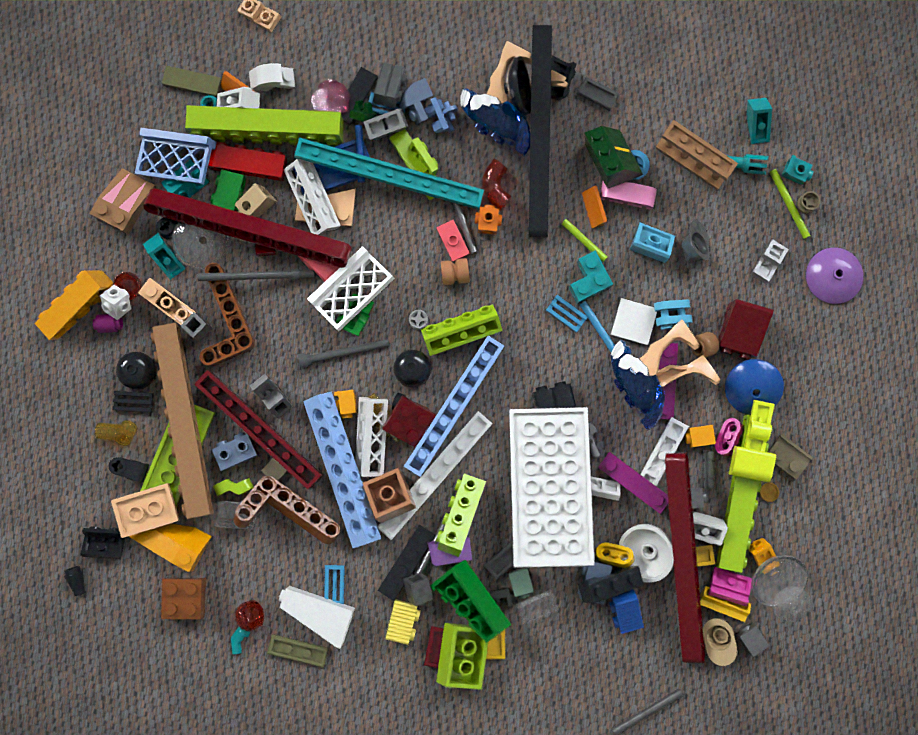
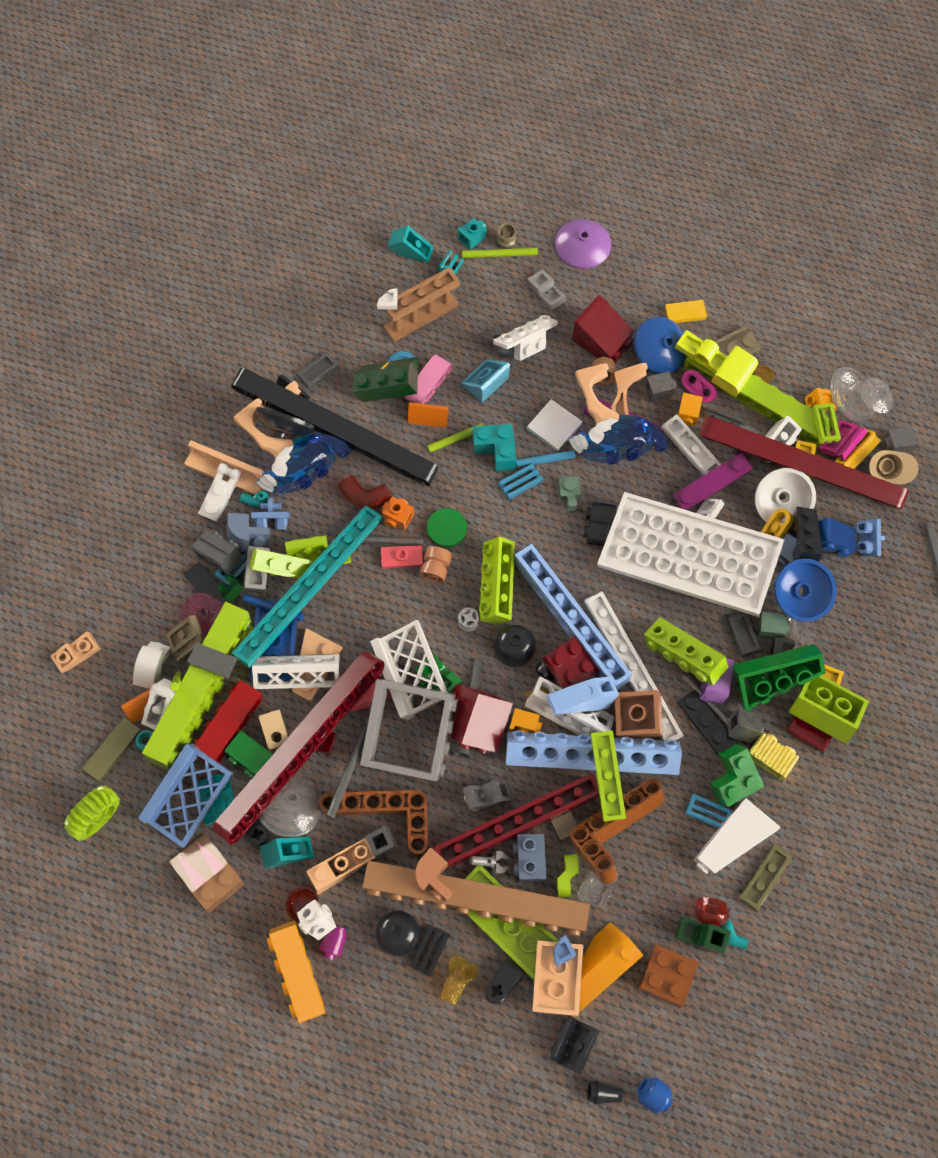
camera: 70 degrees left, 15 degrees down
(88, 621) = (655, 1095): none -> blue head
(130, 90) = (91, 813): none -> lime gear
(165, 507) = (563, 951): none -> medium blue tile
(178, 374) = (428, 870): none -> nougat brick
(219, 421) = (491, 861): none -> light grey bar
(224, 620) = (702, 936): none -> dark green brick
(256, 104) = (176, 681): none -> lime bar
(283, 124) = (212, 660): none -> dark grey tile
(303, 94) = (184, 637): none -> dark tan plate
(320, 488) = (608, 776): none -> lime plate
(332, 329) = (374, 724): none -> light grey window
(332, 362) = (479, 719): none -> slope
(368, 600) = (740, 778): none -> green brick
(381, 442) = (584, 696): none -> light blue slope
(395, 141) = (278, 563): none -> tile
(444, 63) = (219, 493): none -> white plate
(451, 95) = (256, 500): none -> teal arm
(467, 55) = (208, 460): none -> light nougat fence
(495, 267) = (446, 528): none -> green tile
(557, 612) = (817, 586): none -> blue dish
(576, 359) = (570, 490): none -> sand green plate
(641, 642) = (869, 537): none -> medium blue hips
(666, 321) = (568, 394): medium azure brick -> none
(678, 123) = (388, 300): none -> white tile
(706, 263) = (527, 338): none -> white bracket
(713, 402) = (660, 386): none -> flat silver brick
(722, 573) = (828, 438): none -> lime tile
(803, 397) = (686, 311): none -> yellow tile

